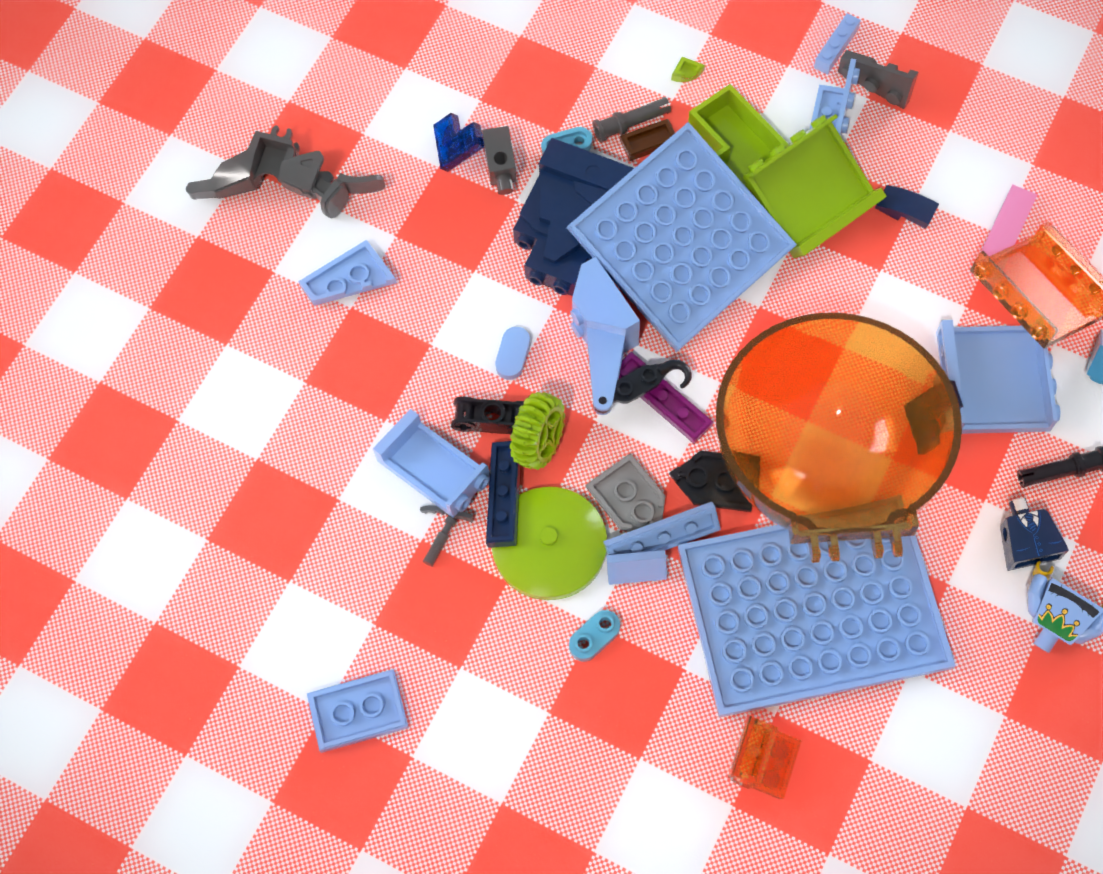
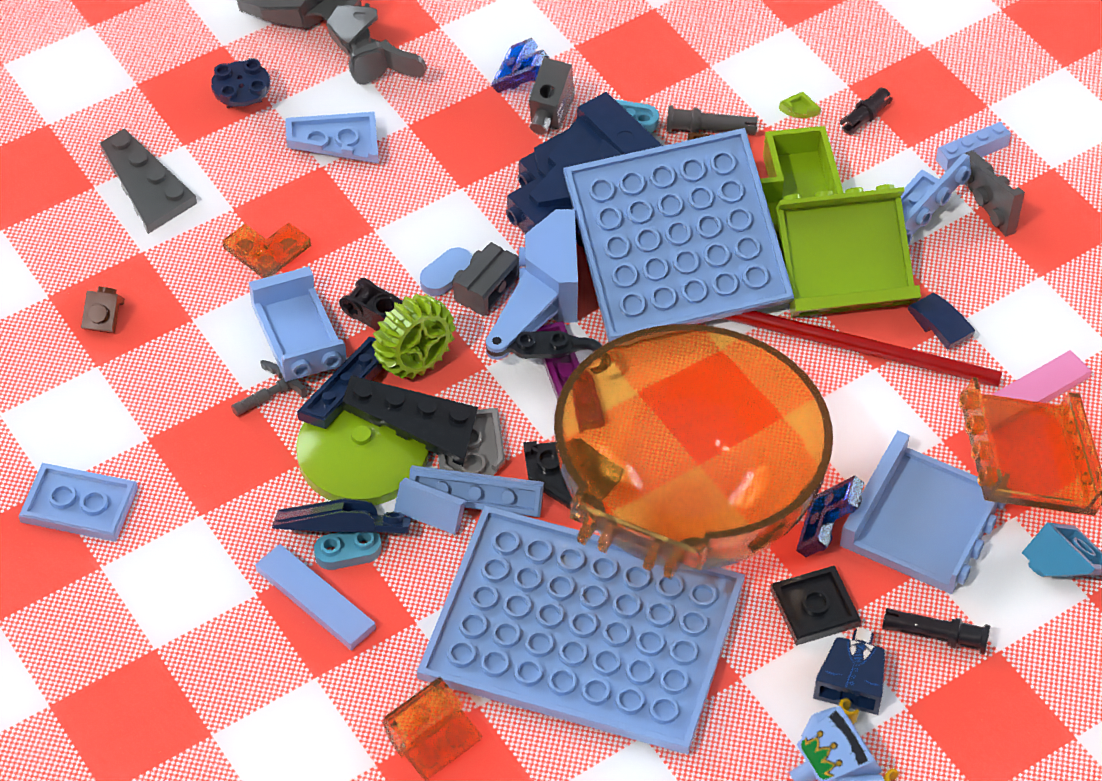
camera: 25 degrees right, 15 degrees down
(226, 397) = (150, 186): none -> dark grey wing
(251, 260) = (240, 83): none -> dark blue plate
(263, 531) = (101, 310): none -> bracket
(364, 412) = (269, 254): none -> clear orange plate
(550, 345) = (486, 278): none -> dark grey brick
(573, 616) = (341, 516): none -> dark blue piece
(587, 495) = (431, 420): none -> black wing
(597, 691) = (315, 597): none -> light blue tile
(740, 51) = (866, 110): none -> black pin
(870, 255) = (868, 346): none -> red piece
(967, 495) = (815, 605): none -> black tile

